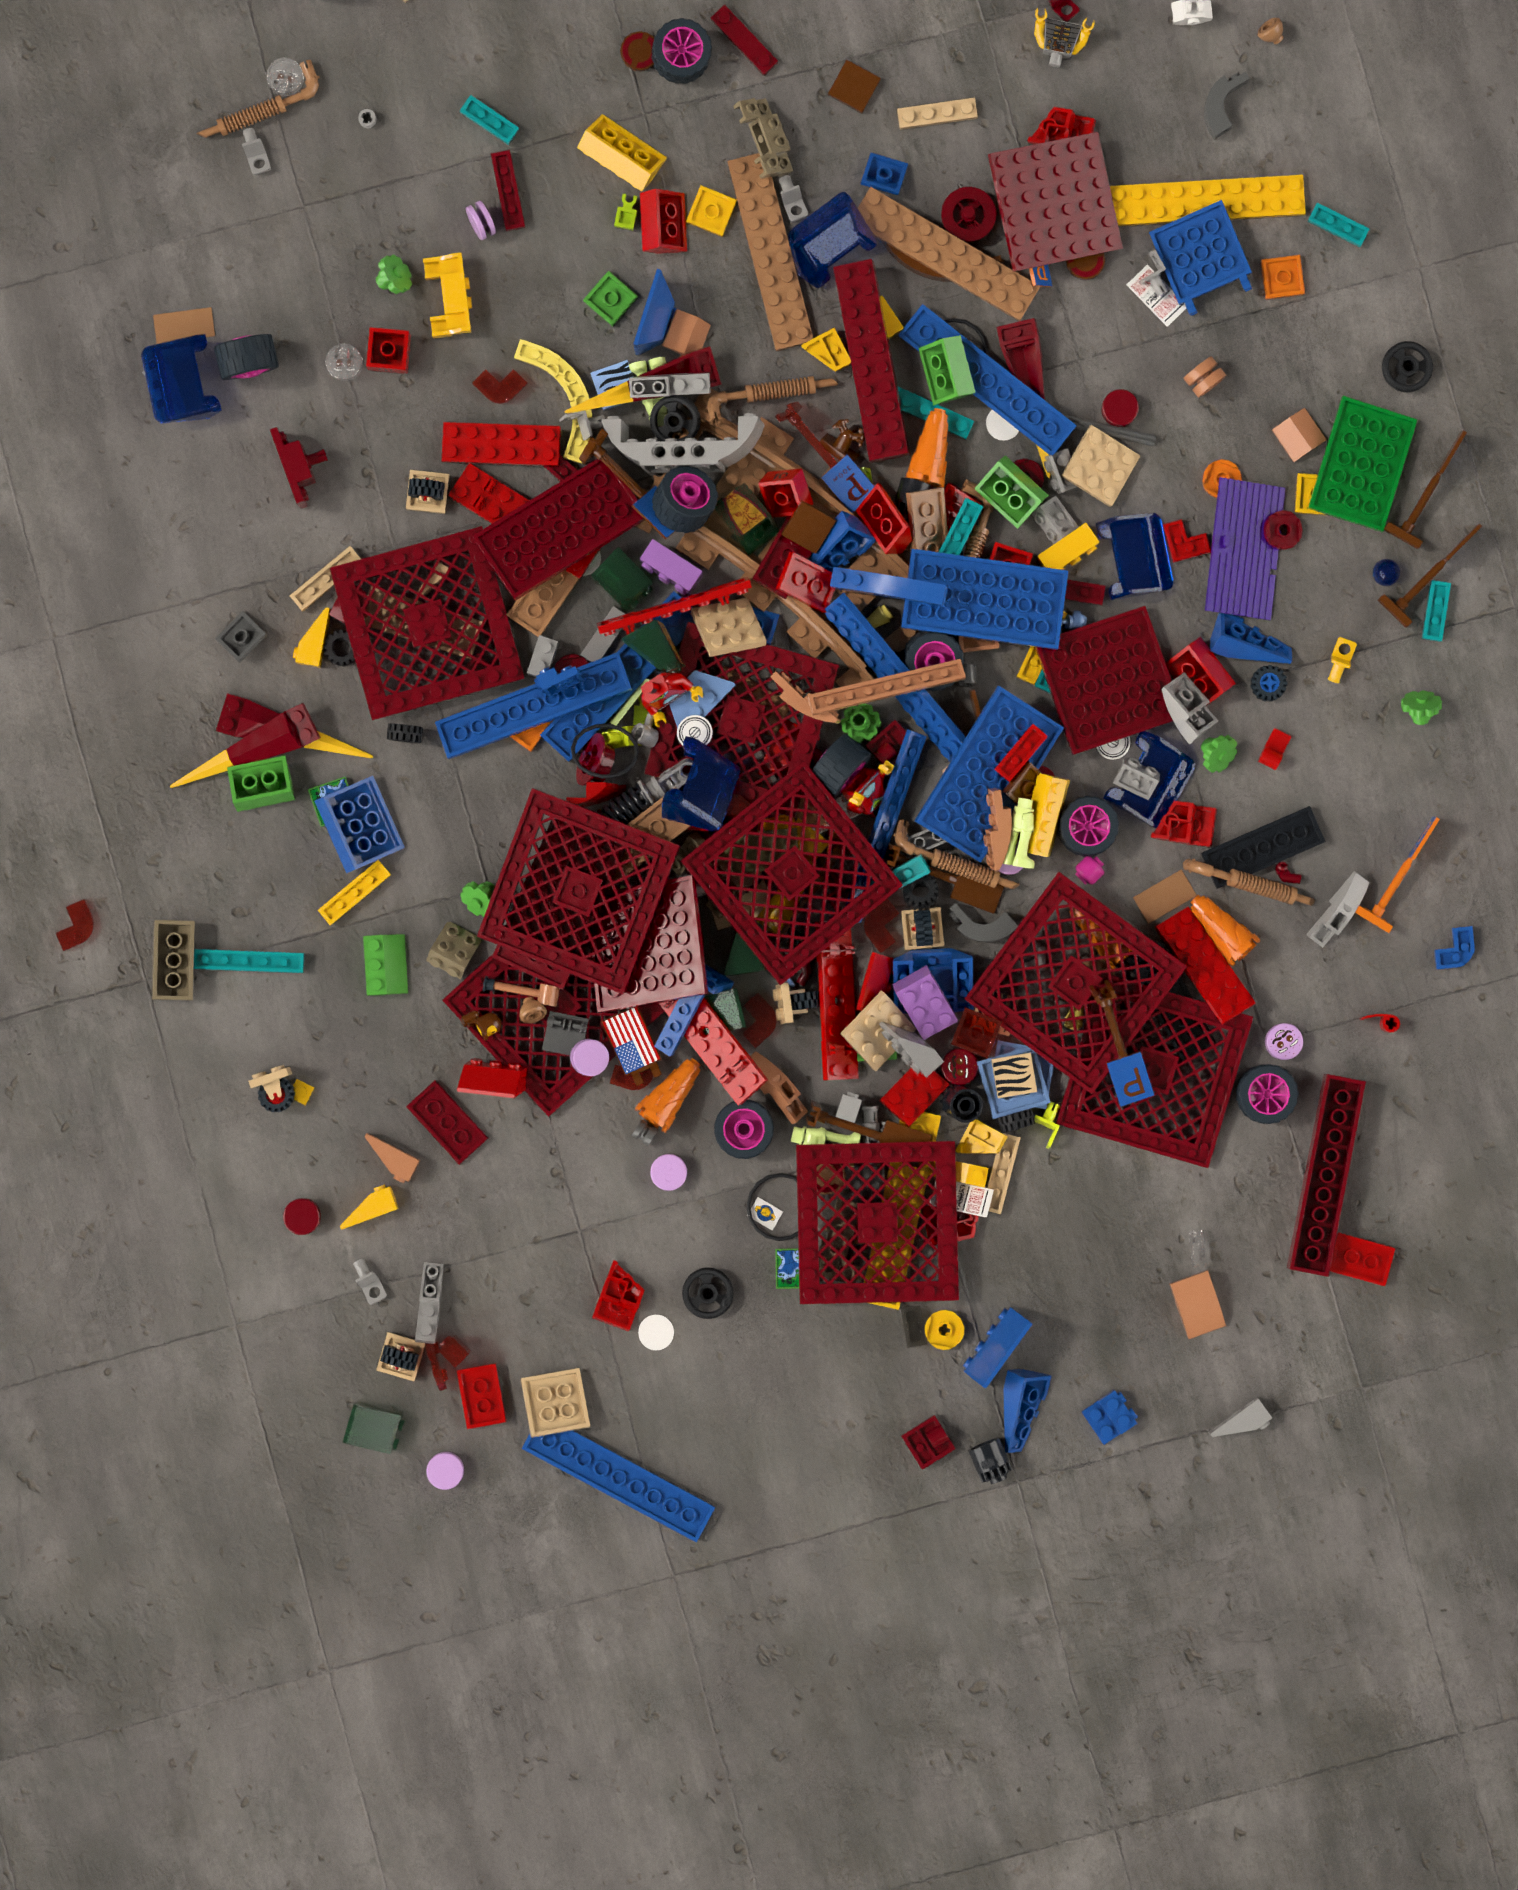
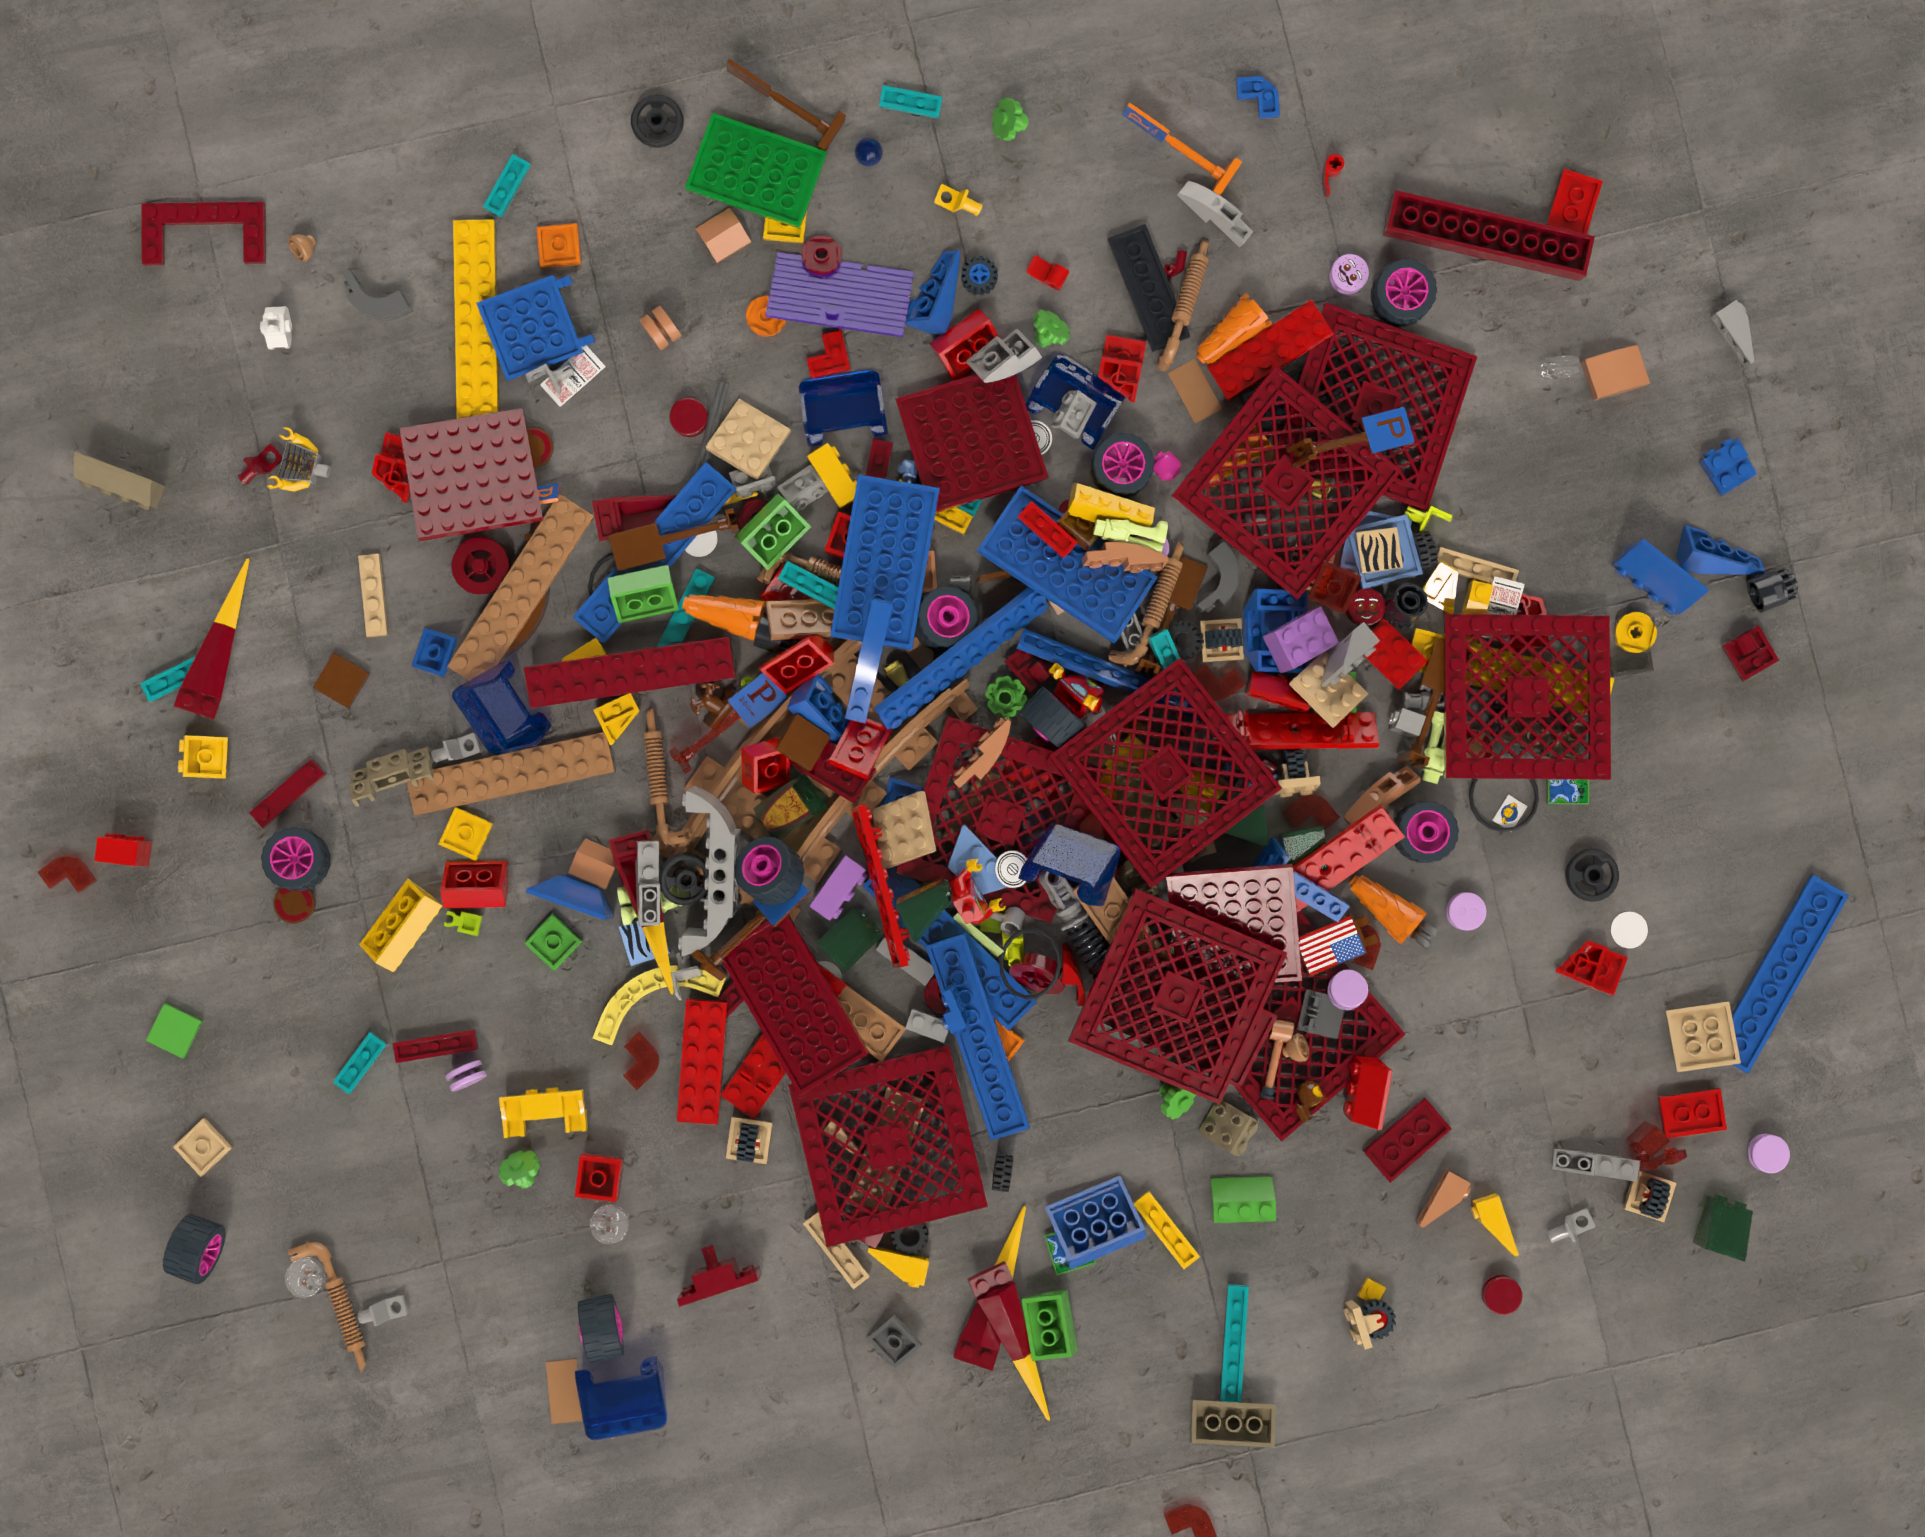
camera: 95 degrees left, 0 degrees up
(361, 119) = (347, 1196): light grey bush -> none
(886, 687) = (975, 667): nougat plate -> none
(995, 370) = (645, 544): none -> reddish brown piece
(1397, 608) = (907, 141): reddish brown piece -> none

